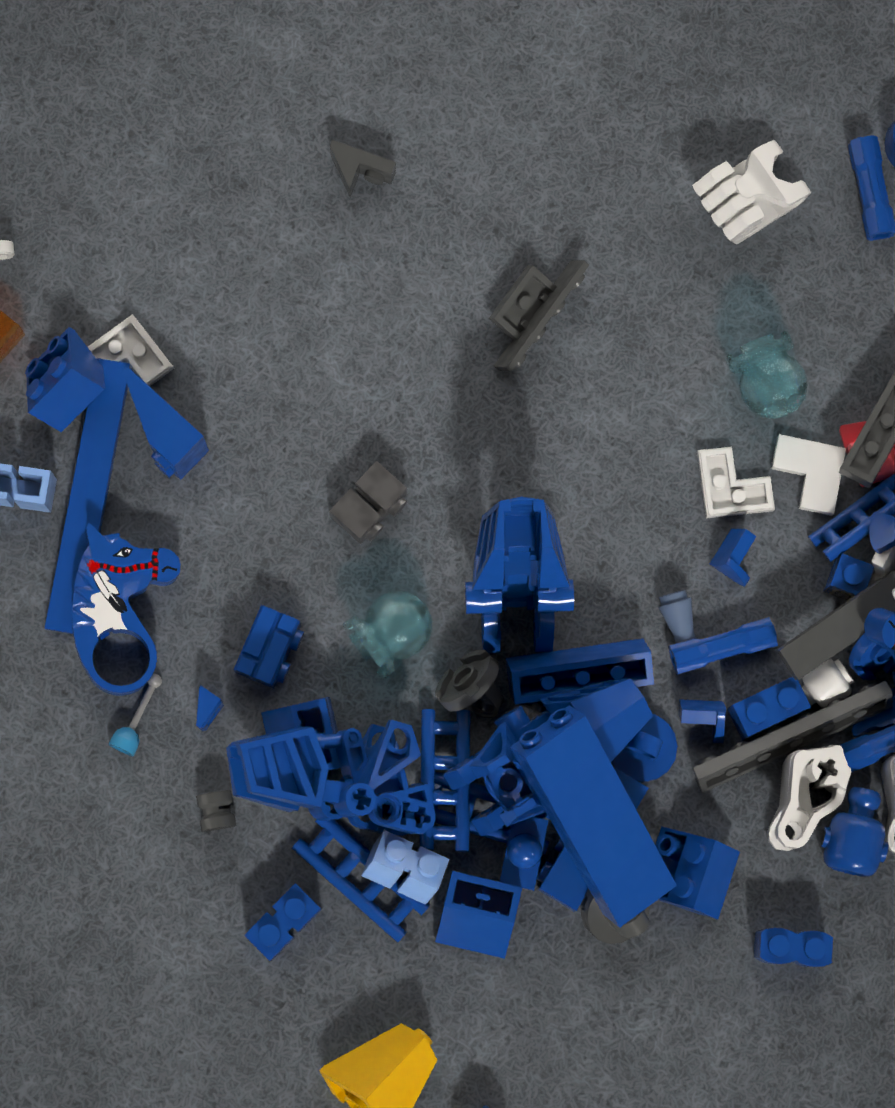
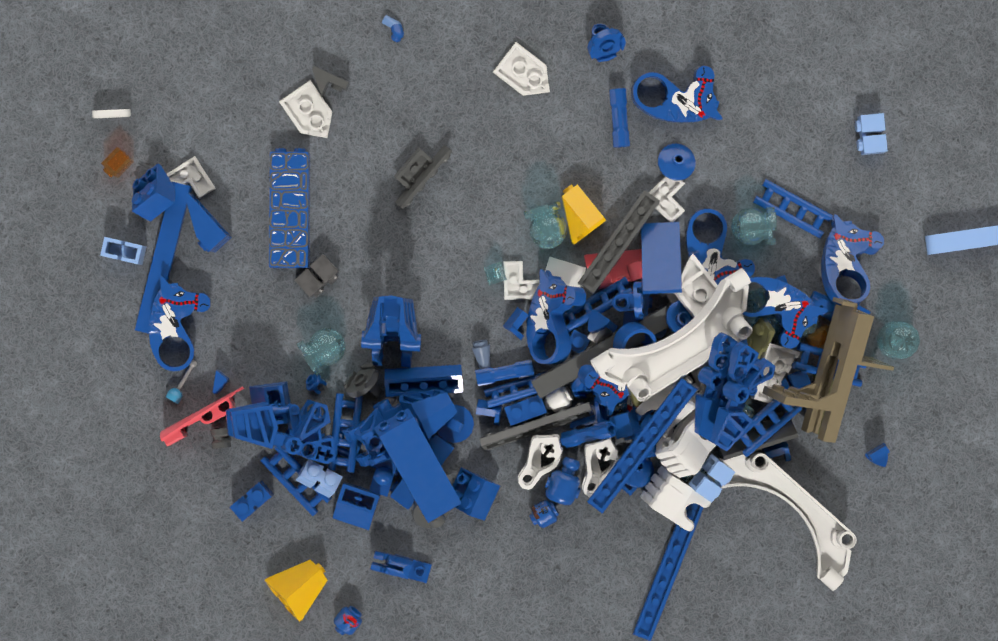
camera: 10 degrees right, 10 degrees up
(134, 806) = (177, 431): none -> coral panel
(268, 647) = (256, 351): blue brick -> none
(309, 391) = (289, 209): none -> blue brick
(327, 221) = (308, 110): none -> white tile
(376, 695) = (313, 381): none -> blue plate
(467, 70) = (396, 28): none -> blue arm
(574, 1021) = (401, 566): none -> blue plate
(686, 471) = (495, 273): none -> clear light blue plate
(695, 126) = (523, 71): none -> white tile
(741, 671) = (512, 386): none -> blue bar
(749, 194) = (547, 116): white piece -> none
(787, 533) = (546, 316): none -> blue animal
(801, 948) = (529, 539): blue brick -> none
(826, 896) = (544, 513): none -> blue head
(827, 352) = (580, 213): none -> yellow slope
(834, 63) = (605, 43): none -> blue tile

